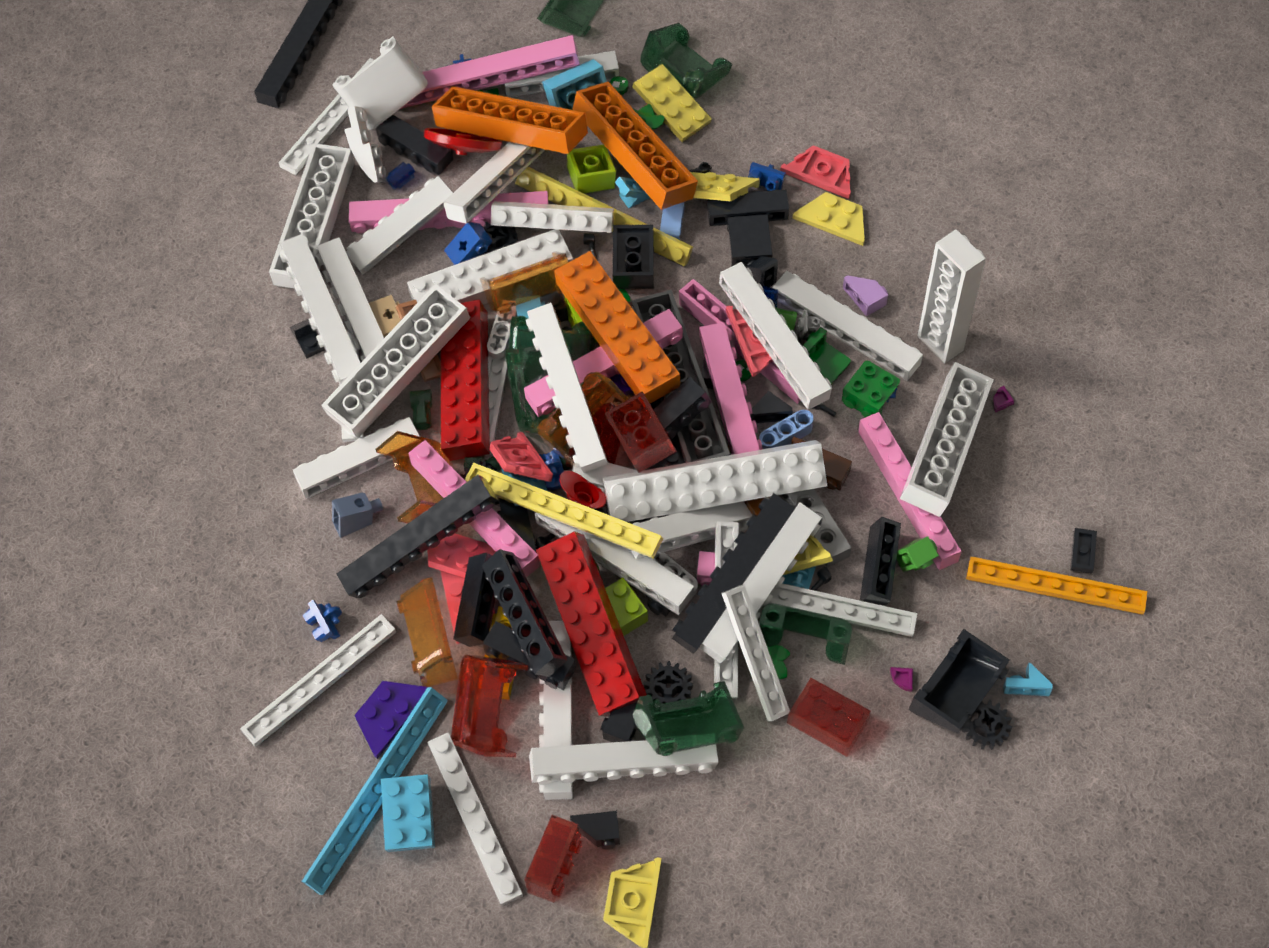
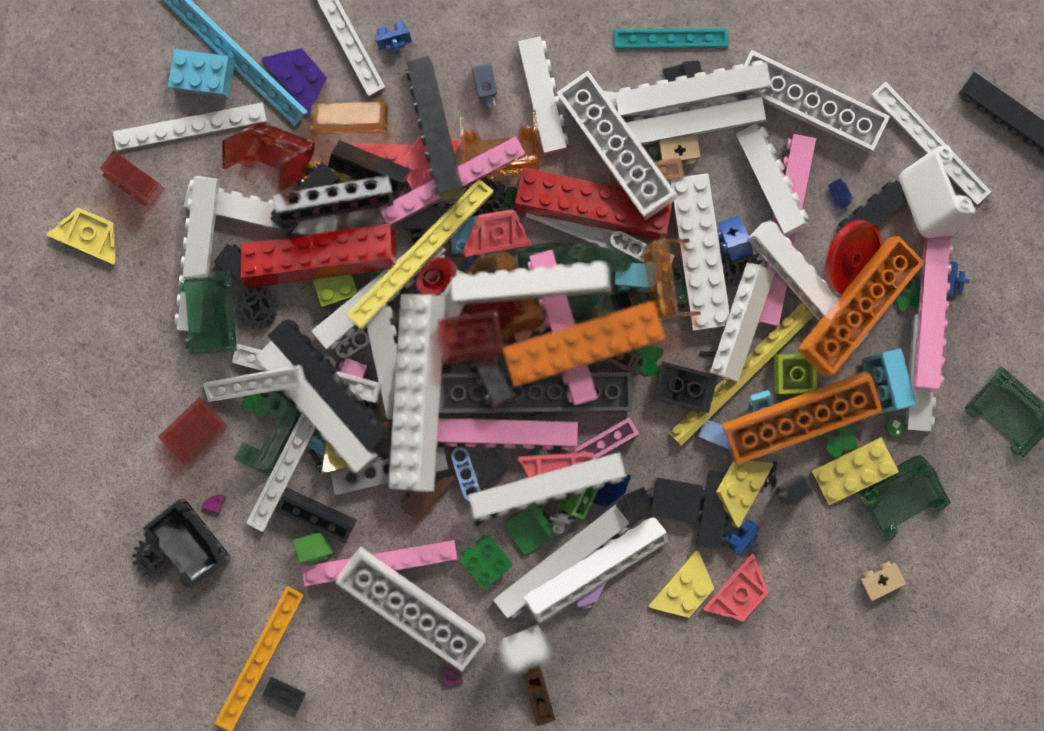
camera: 100 degrees right, 25 degrees up
(271, 358) = (671, 38): none -> teal tile
(366, 153) = (870, 163): white slope -> none
(421, 405) = (579, 161): piece -> none
(599, 828) = (151, 221): black slope -> none
(707, 130) = (794, 490): none -> black brick
(770, 61) = (893, 580): none -> tan brick
(844, 284) = (596, 569): none -> white brick
(990, 313) = (538, 693): none -> reddish brown slope
(1033, 684) = (177, 608): medium azure slope -> none

